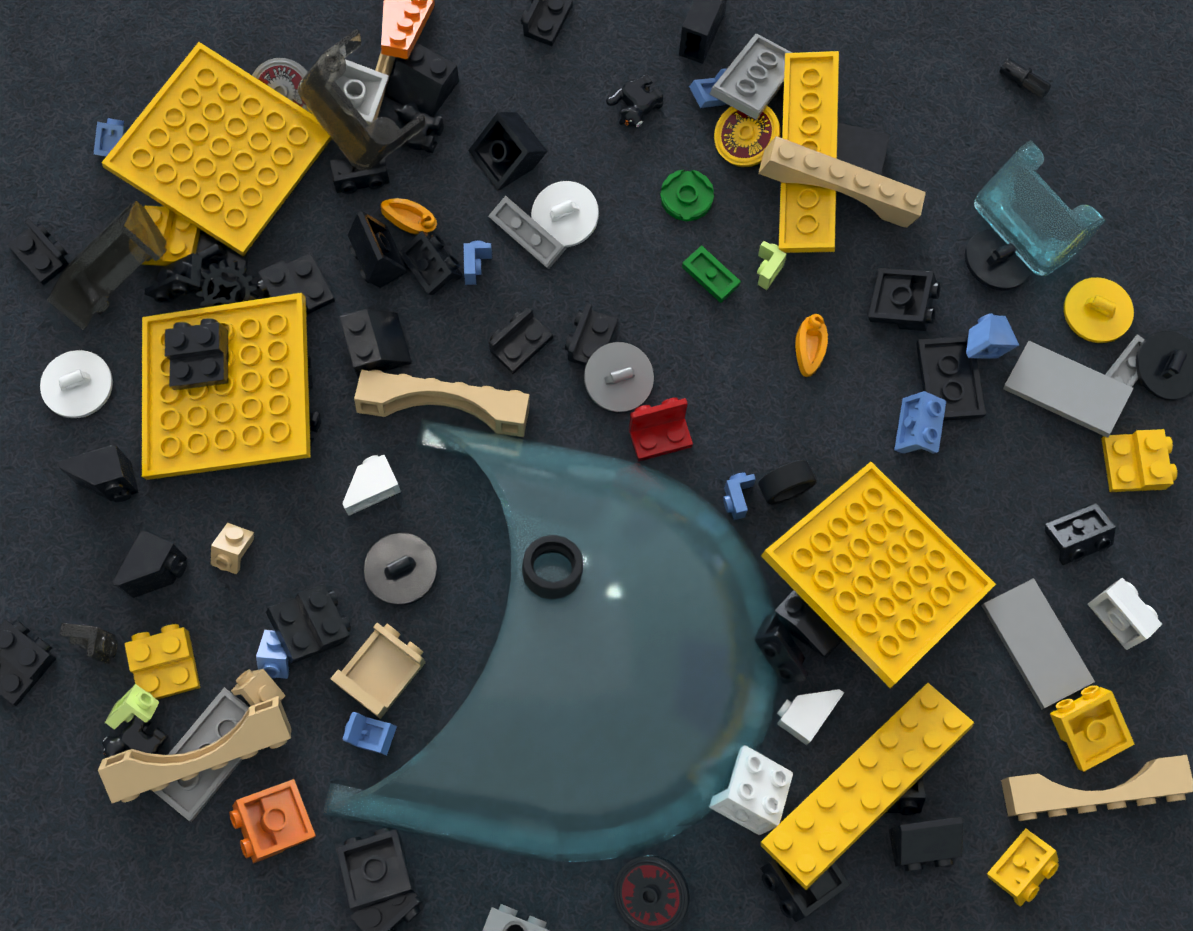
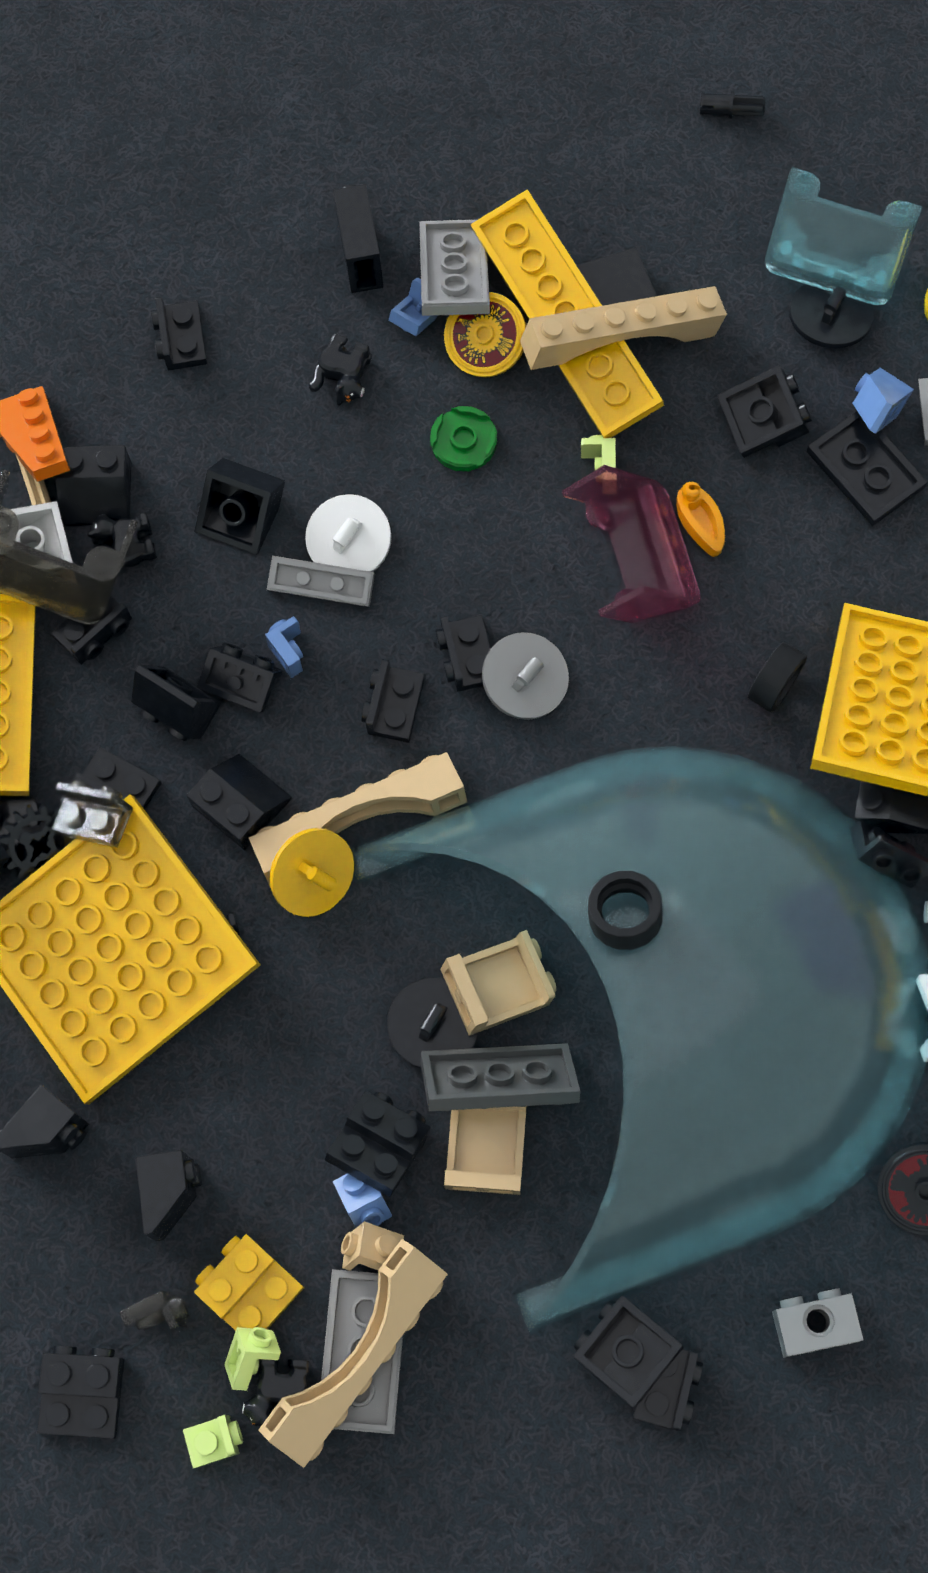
camera: 25 degrees left, 0 degrees up
(73, 748) = (213, 1440): none -> yellowish green bracket
(197, 354) = (58, 932): black plate -> none
(230, 547) = (235, 1118): tan bracket -> none
(268, 291) = (92, 814): none -> clear smoke bracket
(271, 821) = (483, 1375): orange plate -> none
(369, 733) = (522, 1216): medium blue bracket -> none
(370, 484) = (341, 952): white slope -> none
(387, 418) = (311, 872): none -> yellow shield
(408, 215) = (180, 641): light orange arm -> none
(414, 631) = (499, 1077): none -> dark grey plate
(460, 569) = (499, 983): none -> tan panel
(660, 429) = (607, 705): red bracket -> none
(711, 274) = (546, 508): green plate -> none
(734, 498) = (732, 727): medium blue bracket -> none
(762, 337) = (644, 542): none -> clear pink windscreen
(920, 423) = (868, 532): medium blue bracket -> none

